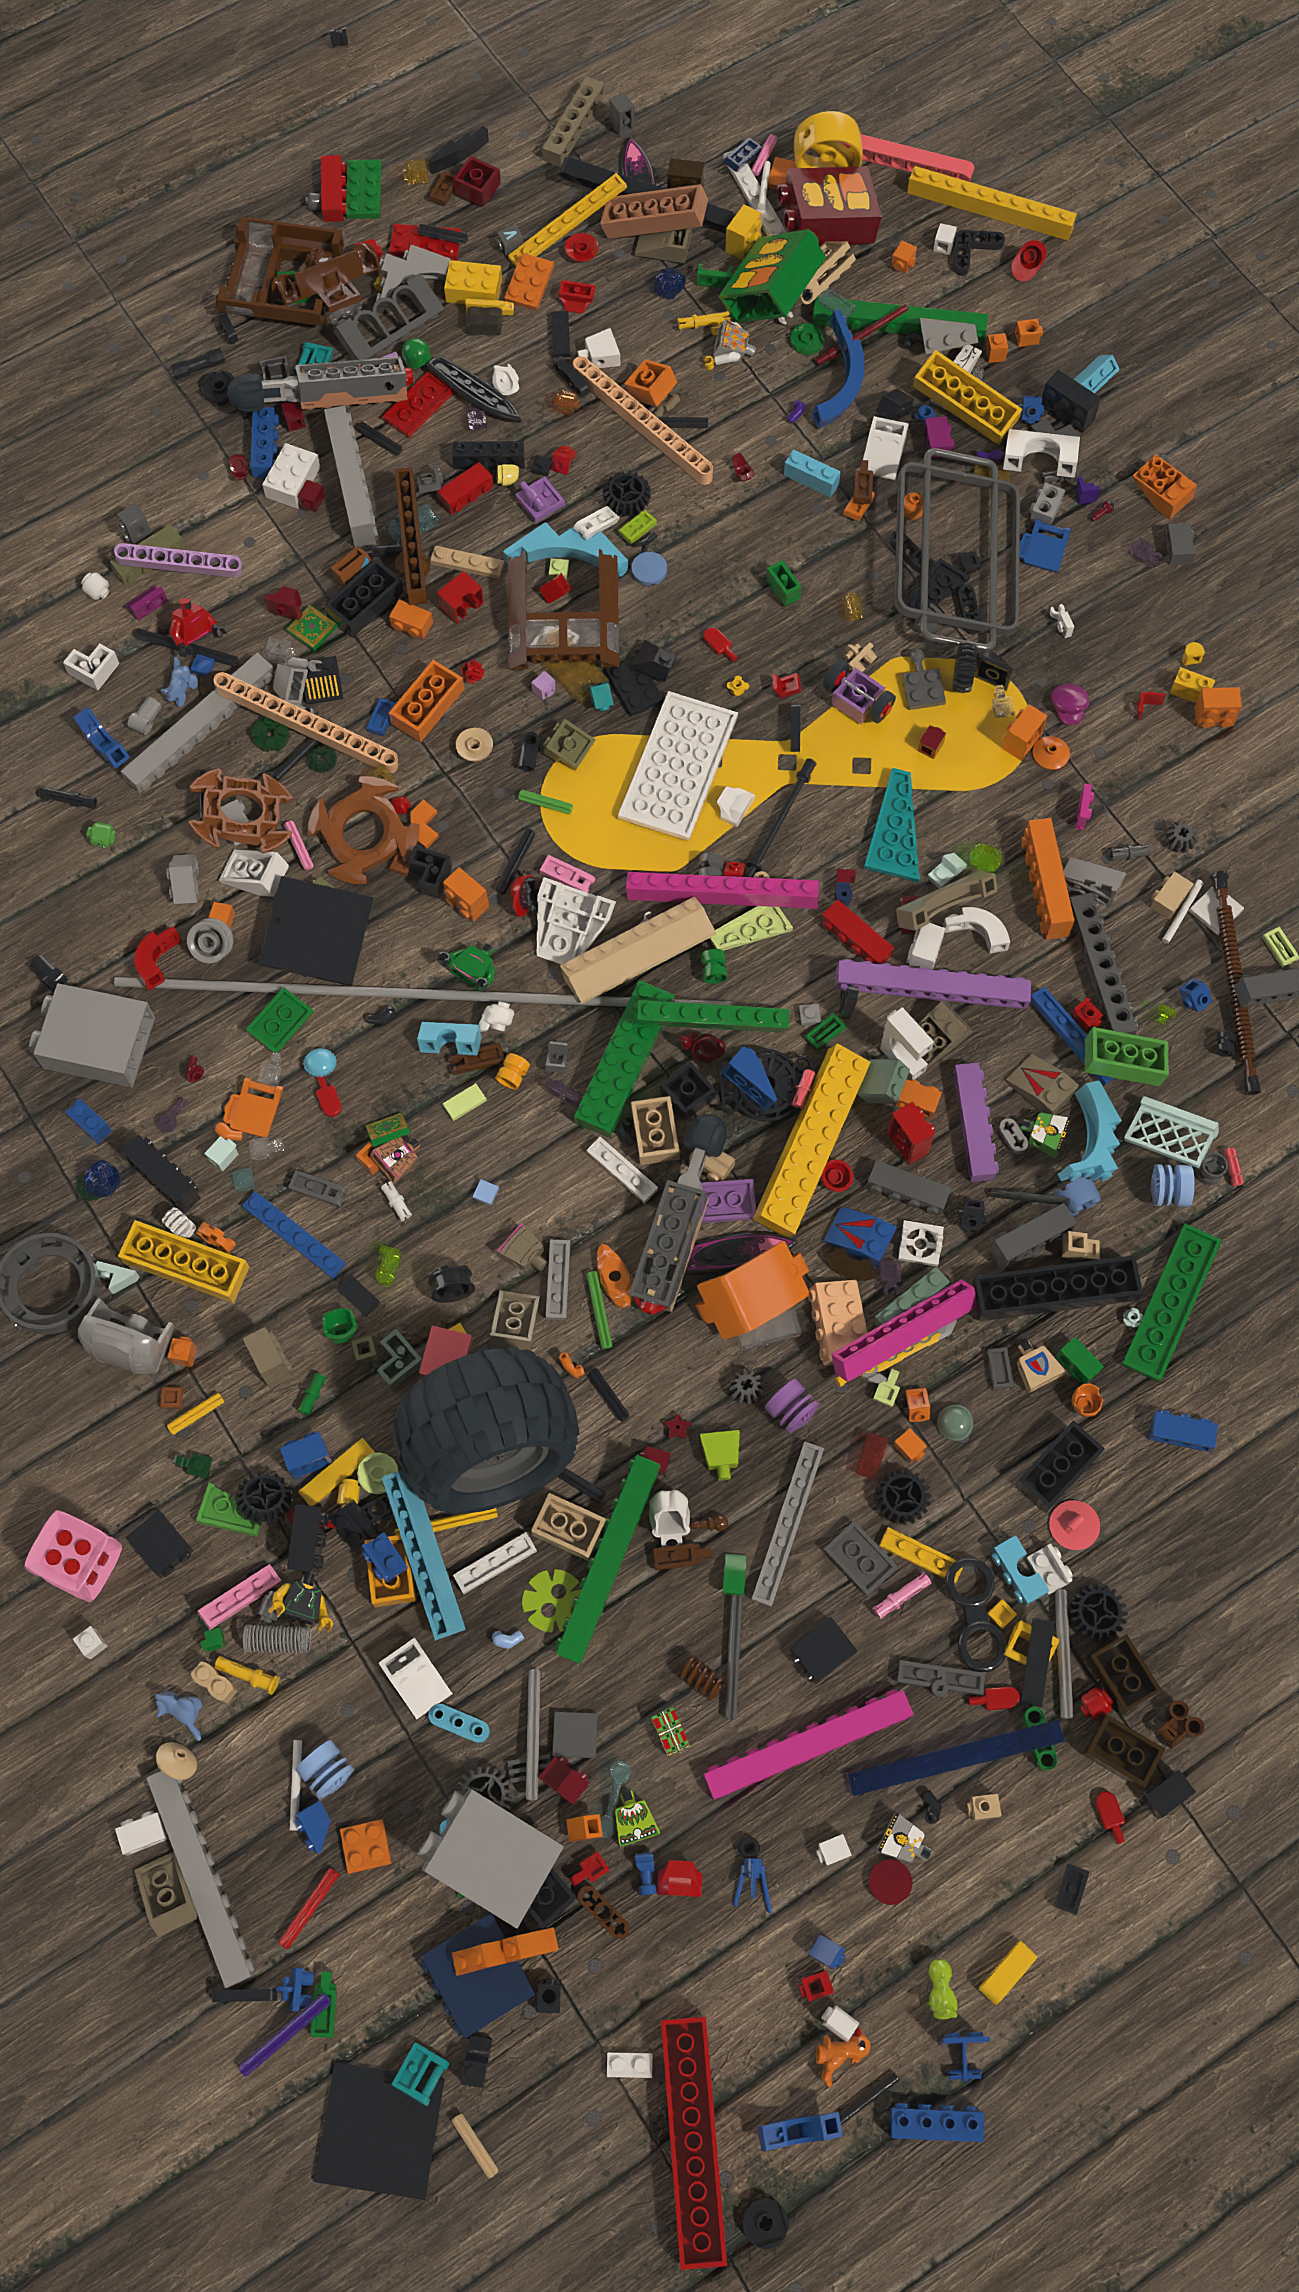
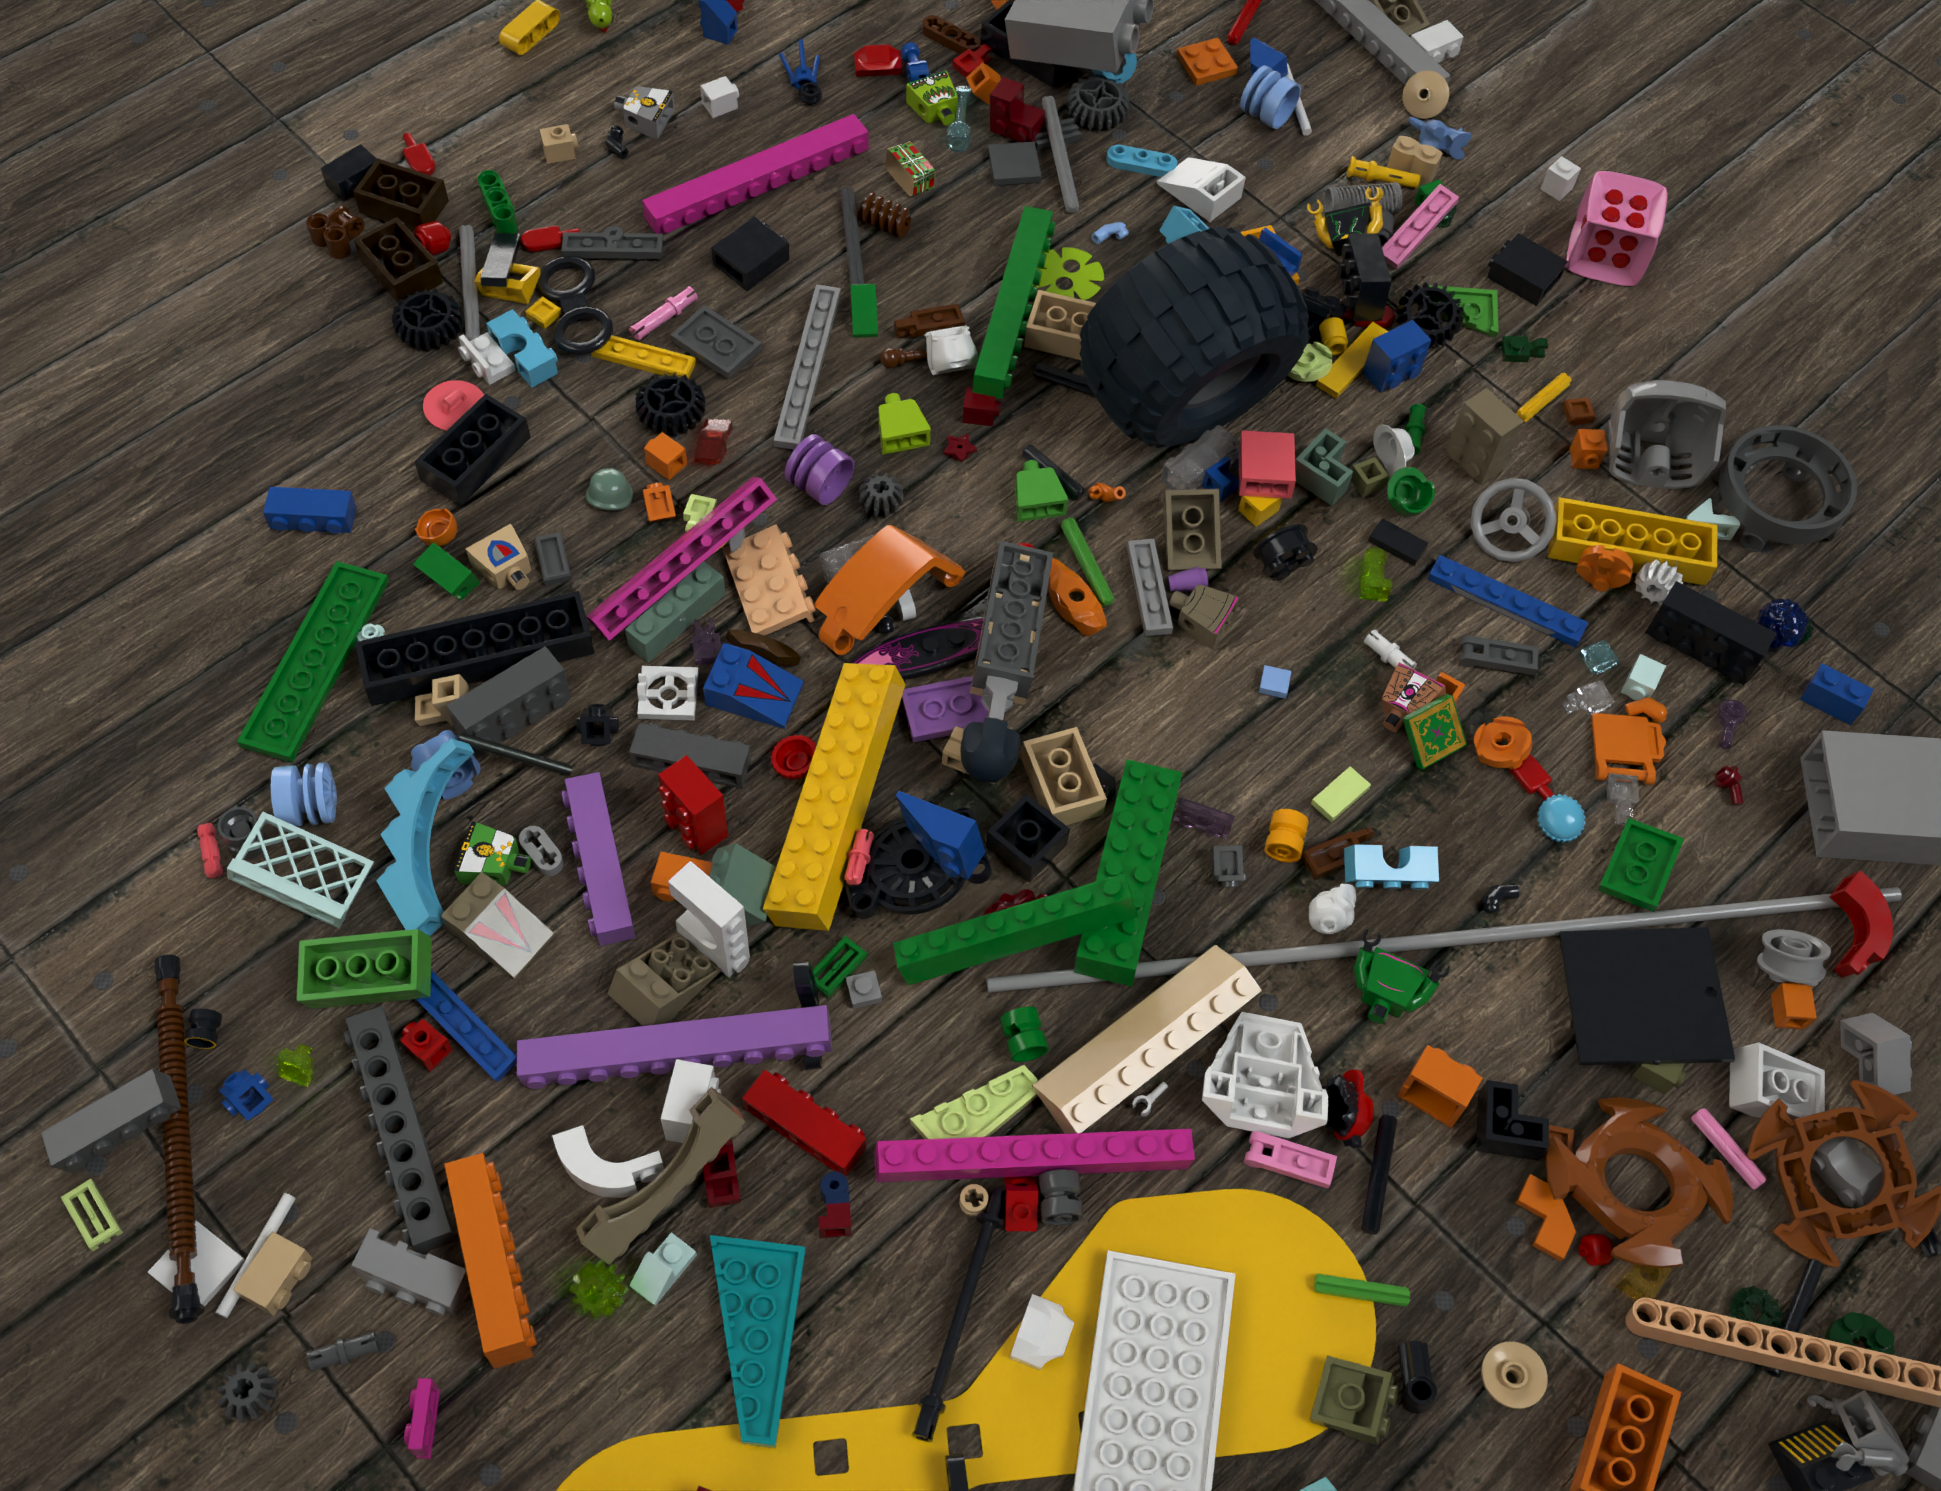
camera: 165 degrees right, 10 degrees down
(268, 1288) = (1520, 487): none -> light grey piece
(333, 1370) = (1393, 447): none -> white piece
(340, 1106) = (1503, 756): none -> orange plate
(380, 717) = (1691, 1416): blue tile -> none
(527, 1280) = (1188, 579): none -> medium lavender cone
(622, 1170) = (1096, 729): white plate -> none
(625, 1372) = (1038, 493): none -> bright green torso
(890, 1882) = (658, 78): dark red tile -> none
(956, 1758) = (589, 174): clear blue plate -> none
(1071, 1889) = (462, 93): black plate -> none

